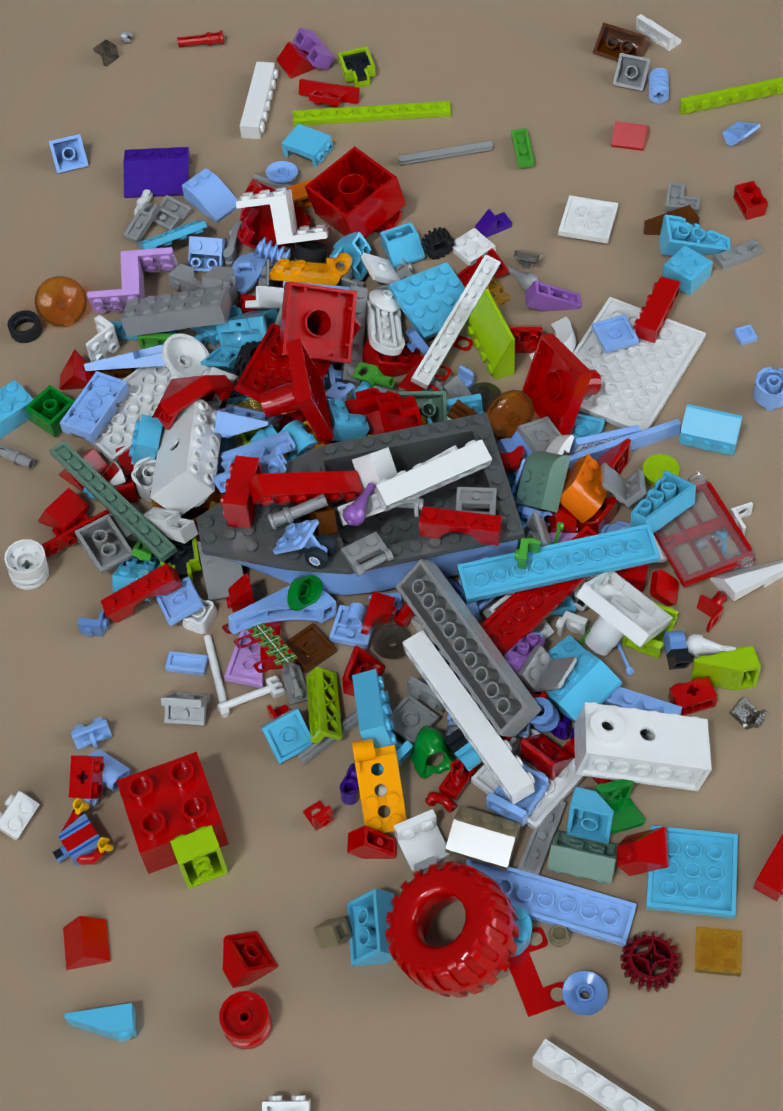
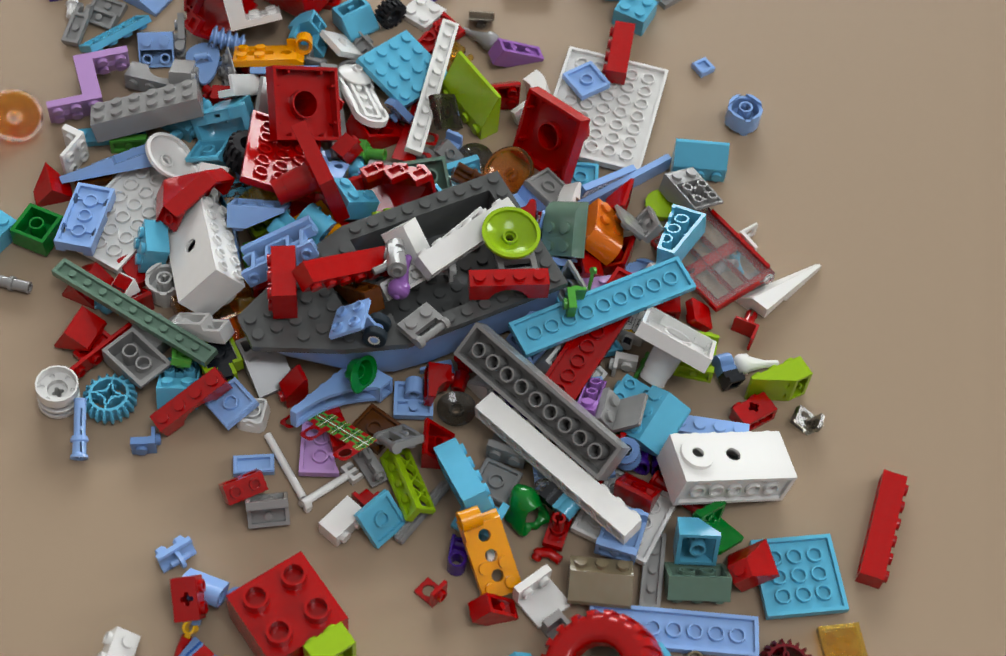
camera: 25 degrees left, 0 degrees up
(32, 611) = (79, 439): none -> light blue pin
(76, 584) = (115, 404): none -> medium azure gear
(168, 682) = (243, 486): none -> red brick
(247, 732) = (340, 522): none -> white brick
(288, 514) = (335, 298): light grey pin -> none
(311, 251) = (265, 35): black tyre -> none
(330, 659) = (402, 435): none -> light grey plate
(355, 371) = (347, 148): none -> red brick
(356, 485) = (394, 258): none -> light grey piece
(462, 348) = (445, 112): none -> clear smoke plate
(473, 466) = (514, 225): none -> lime dish
(629, 671) = (687, 398): light blue hinge -> none
(688, 458) = (688, 189): none -> light grey slope

